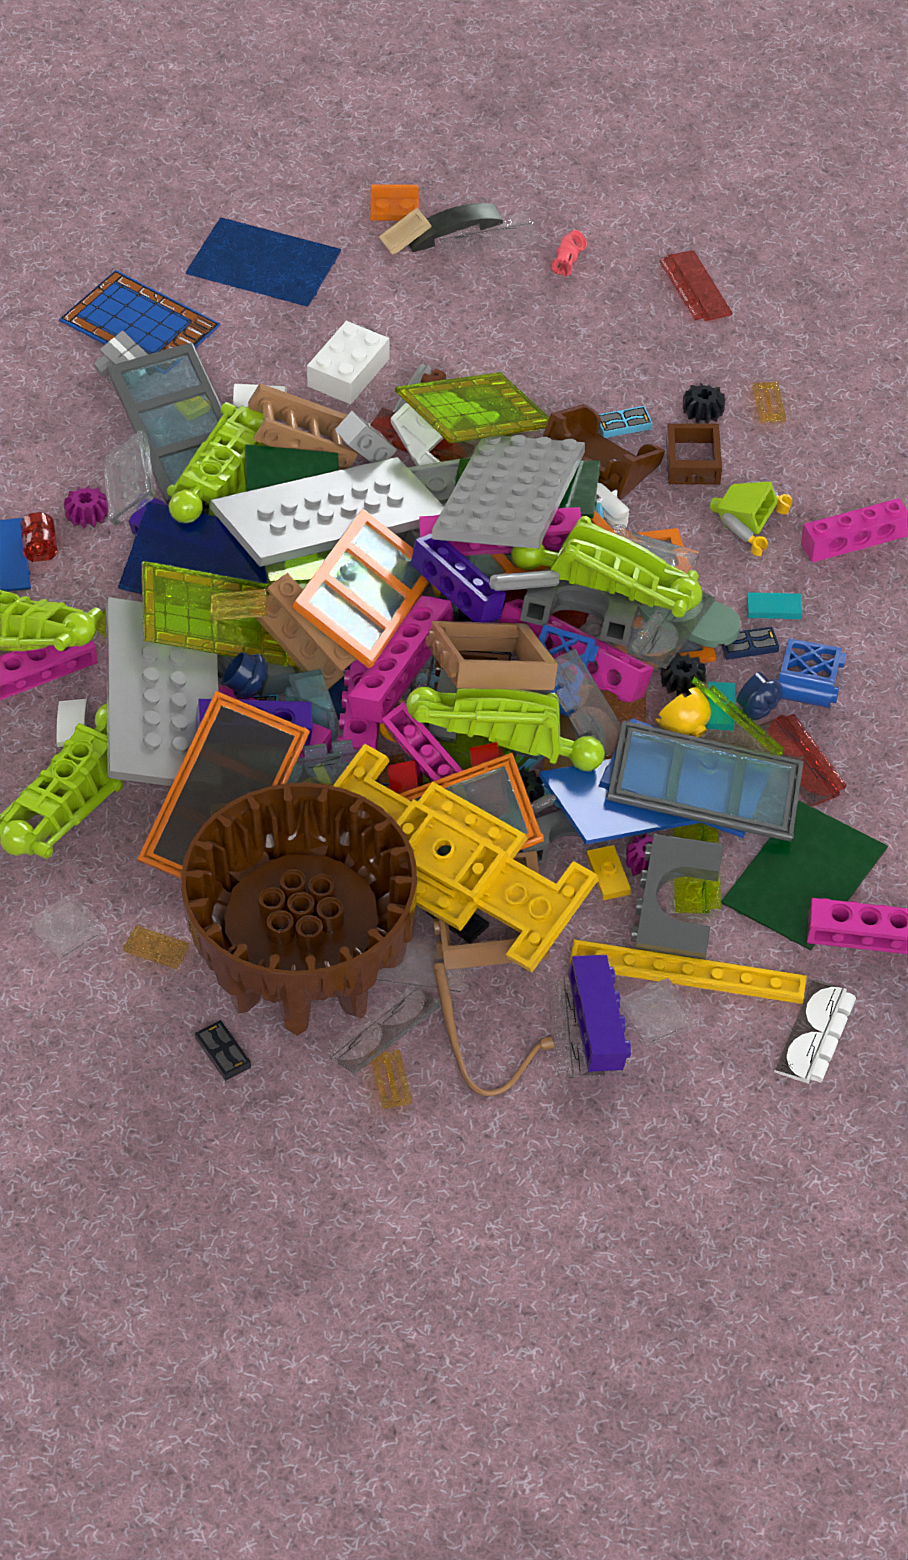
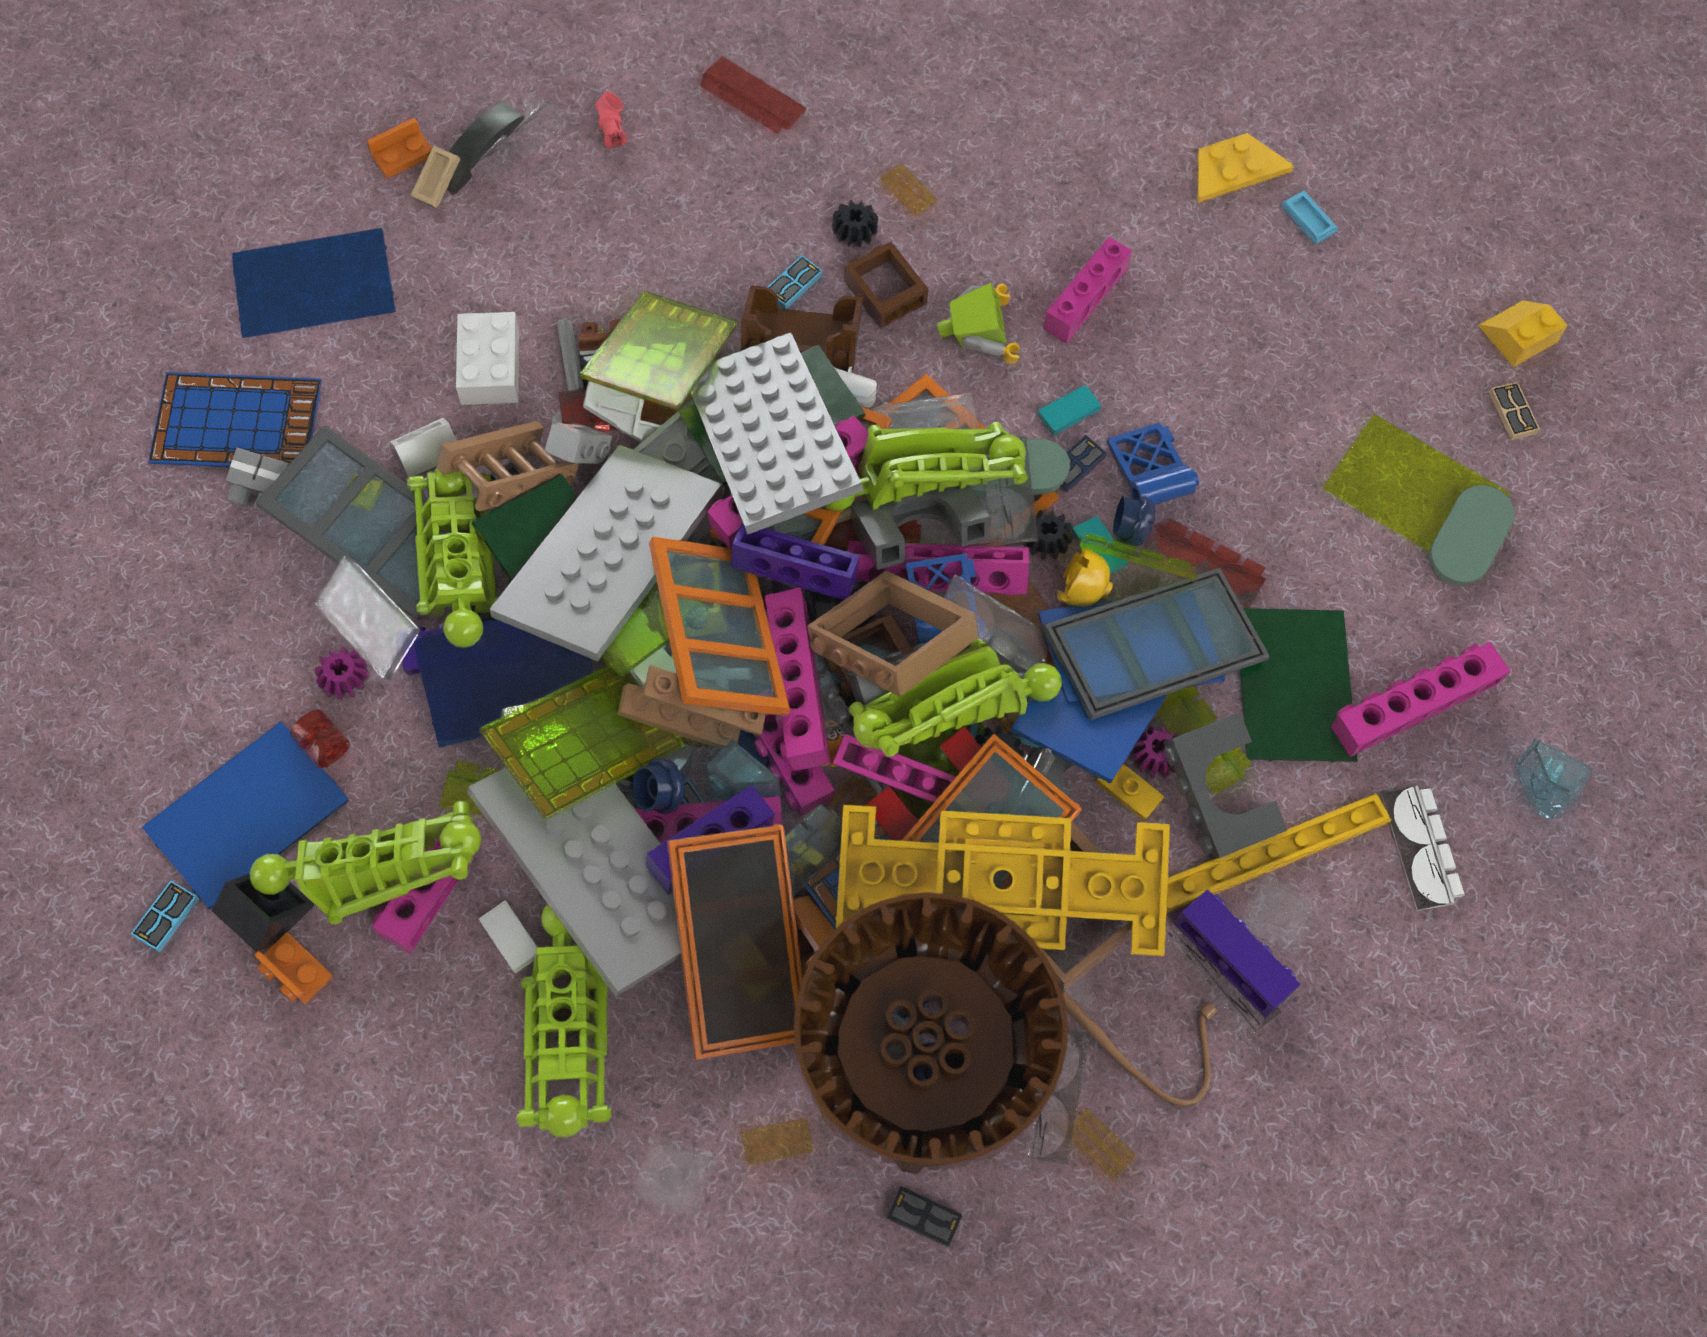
camera: 35 degrees left, 15 degrees up
(238, 608) = (613, 726): clear yellow tile -> none
(524, 580) = (864, 530): light grey axle -> none

